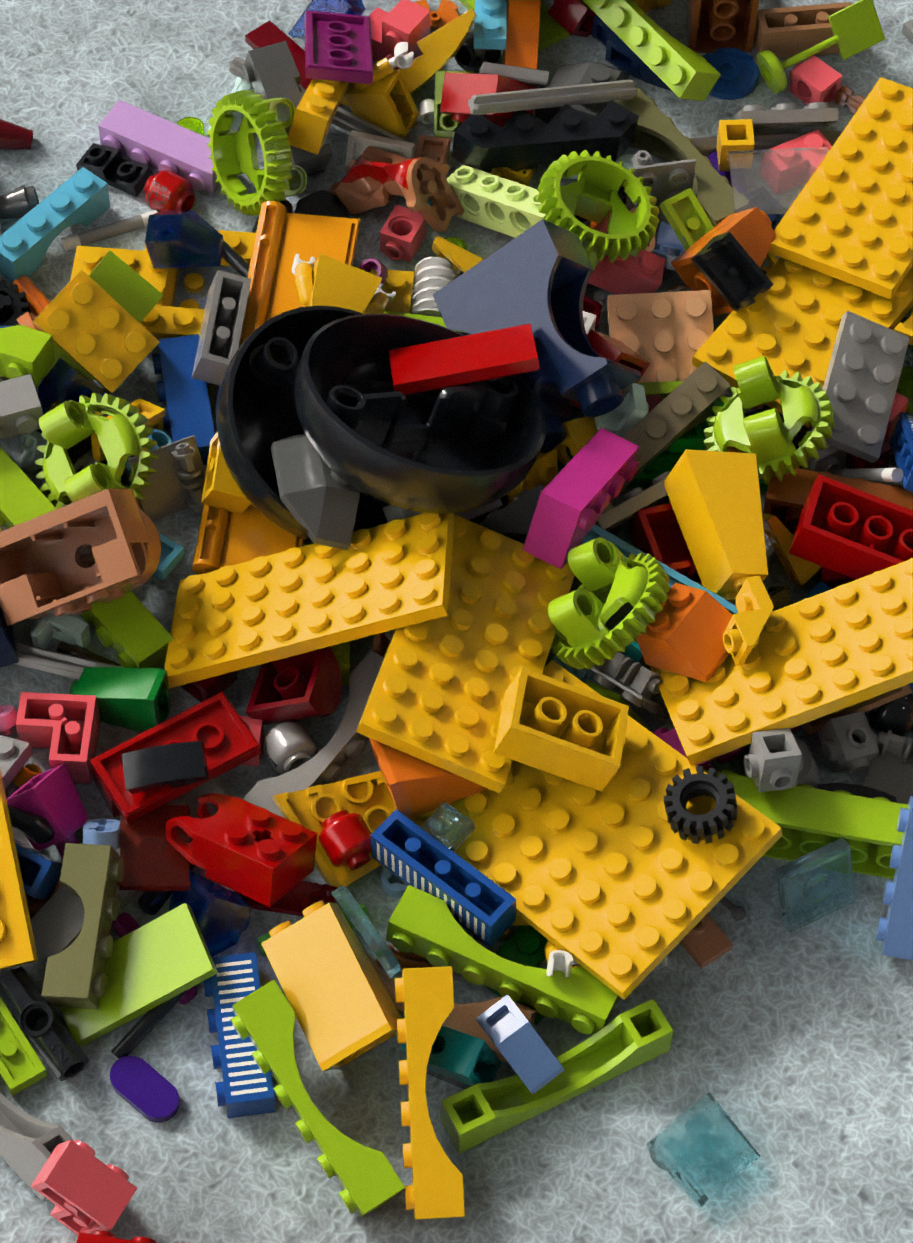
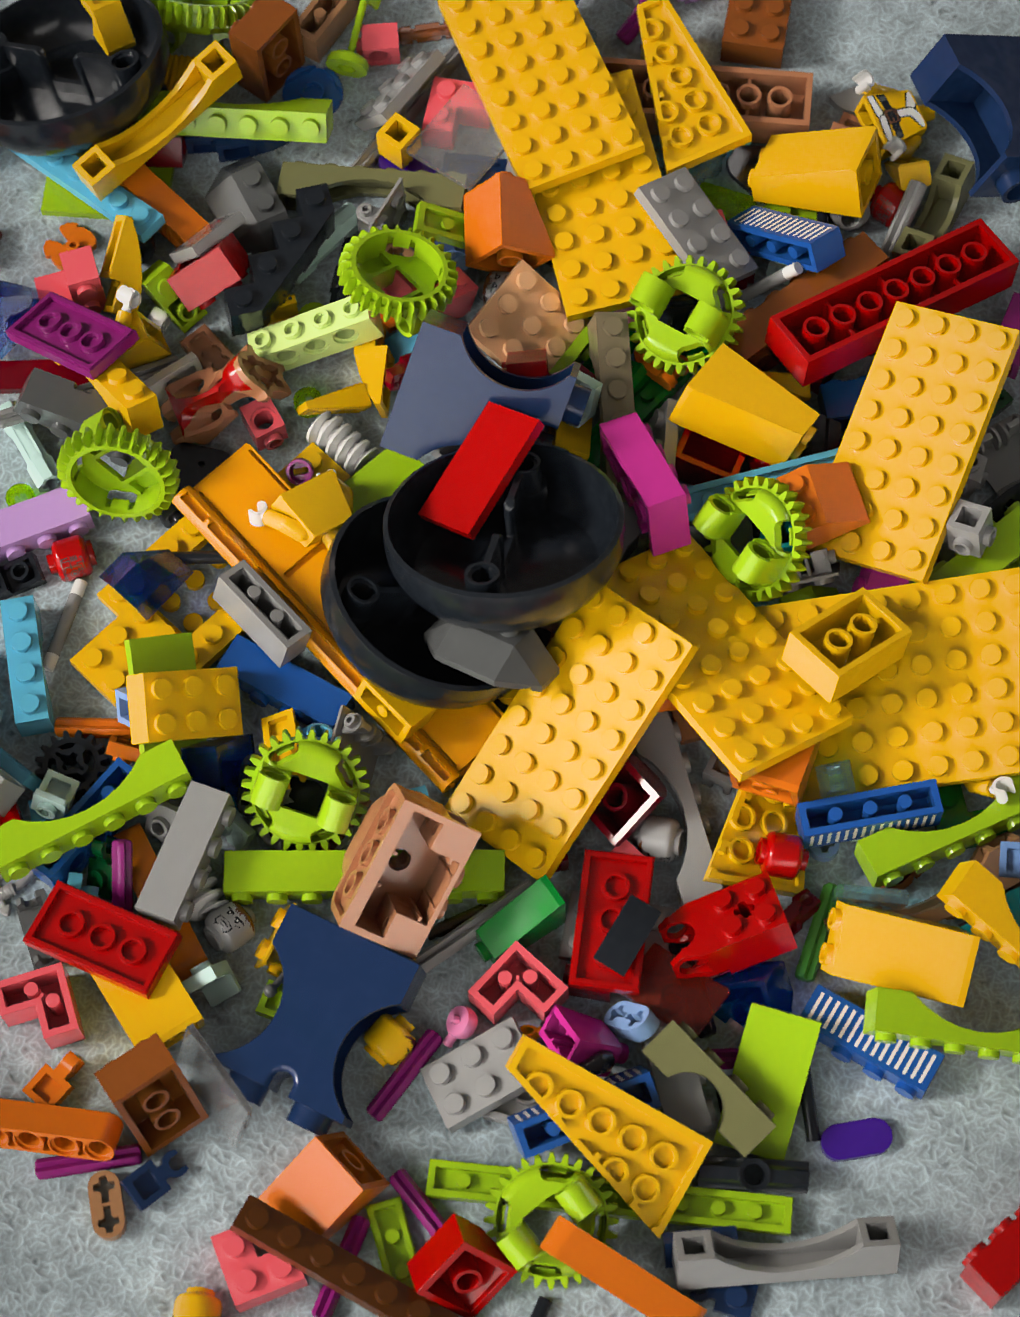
camera: 45 degrees left, 10 degrees up
(83, 1188) = (930, 1236): coral brick -> none
(552, 97) = (258, 227): light grey axle -> none
(701, 785) = (974, 582): black tyre -> none
(731, 271) = (534, 233): black hinge -> none
(745, 626) = (851, 444): yellow slope -> none

